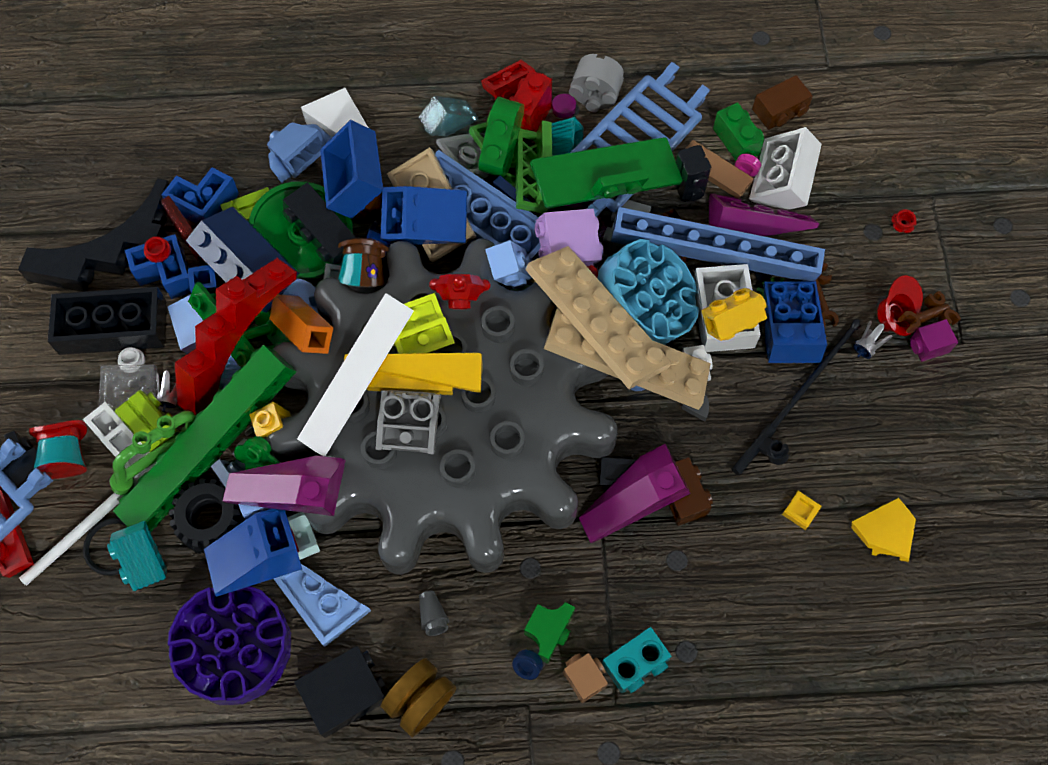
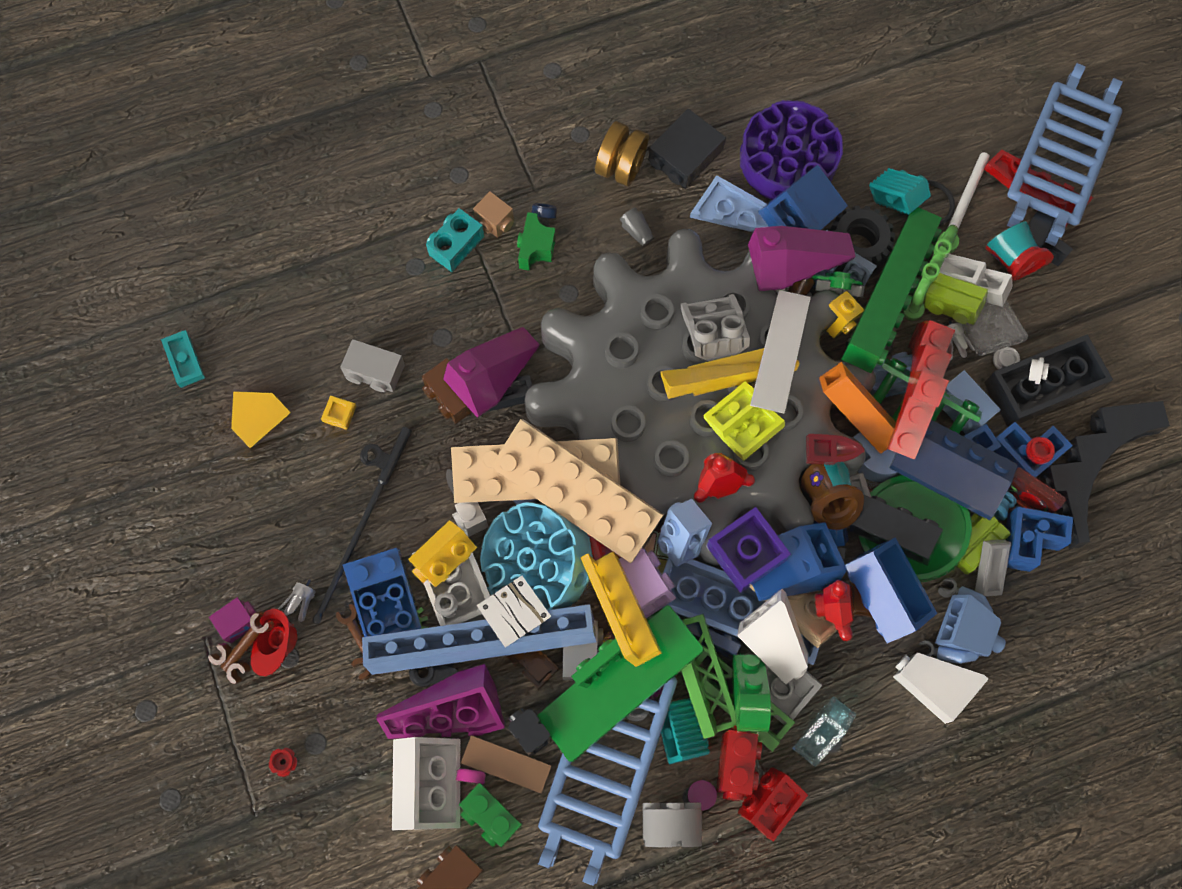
camera: 160 degrees right, 5 degrees up
(116, 315) = (1038, 370): none -> white plate
(249, 185) = (992, 567): none -> light grey tile
(349, 286) = (831, 449): none -> dark red plate
(403, 167) = (837, 607): none -> red rock
(462, 220) = (748, 549): none -> dark purple brick
(465, 164) = (776, 637): none -> white slope
(590, 211) = (621, 608): none -> yellow fence
(682, 248) = (513, 611): none -> white sticker
(741, 269) = (443, 599): none -> light grey pin
(758, 542) = (372, 366): none -> light grey brick
(959, 615) = (183, 358): none -> teal plate

